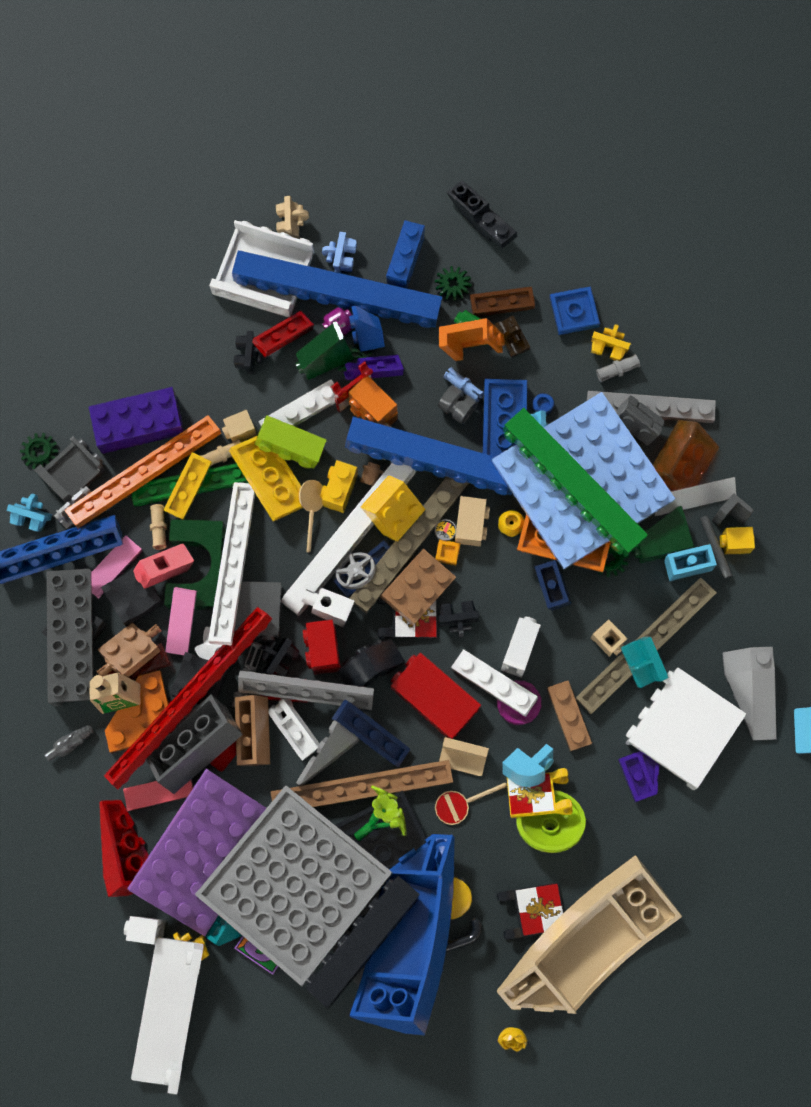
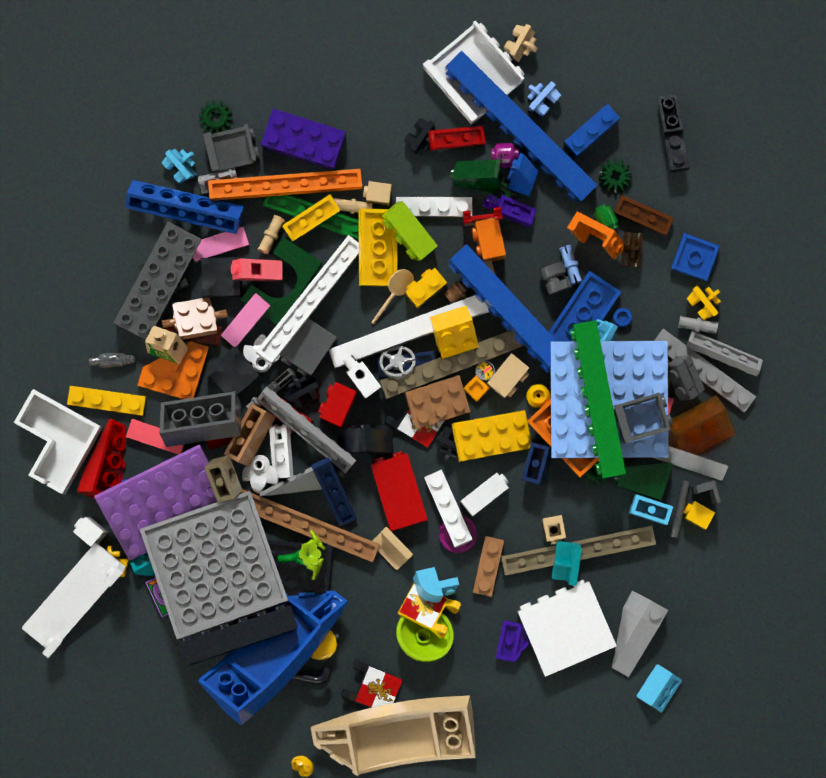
camera: 30 degrees right, 10 degrees up
(68, 850) = (67, 438): none -> white piece
(77, 791) = (106, 400): none -> yellow plate
(187, 698) = (217, 383): red plate -> none
(251, 789) = (223, 478): none -> dark tan brick
(287, 766) = (260, 476): none -> white plate
(453, 806) = (362, 580): piece -> none
(491, 586) = (491, 435): none -> yellow plate
(636, 450) = (622, 421): none -> dark grey window
(659, 378) = (724, 353): none -> light grey plate

